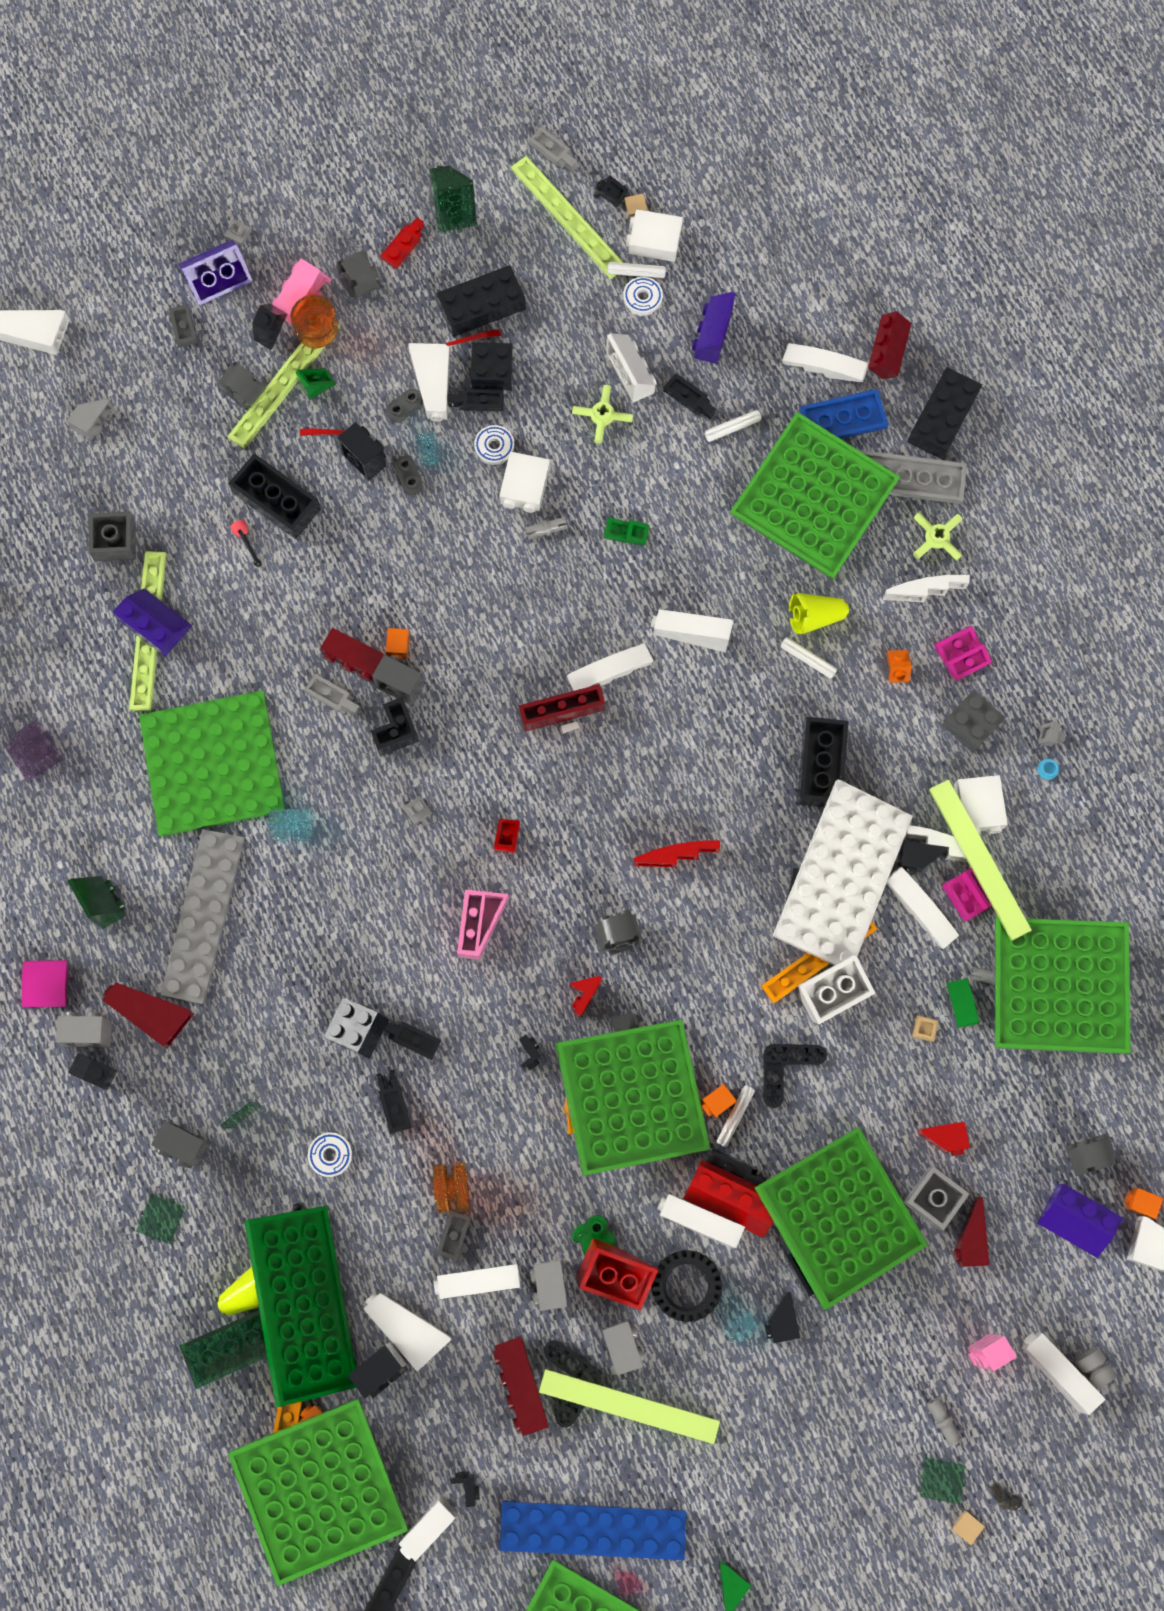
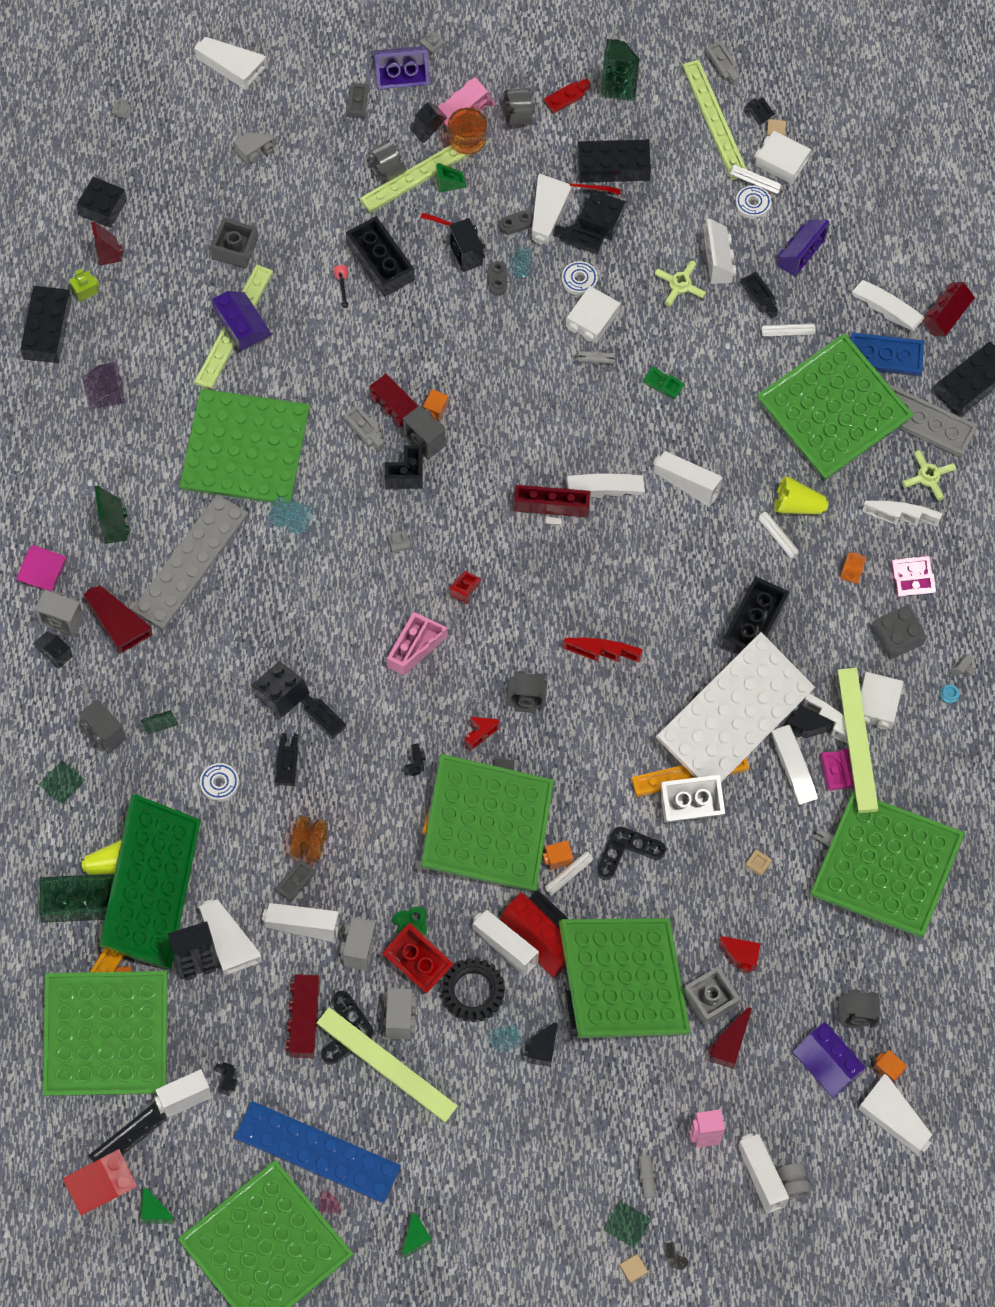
camera: 20 degrees right, 10 degrees down
(962, 1003) = (798, 852): green slope -> none

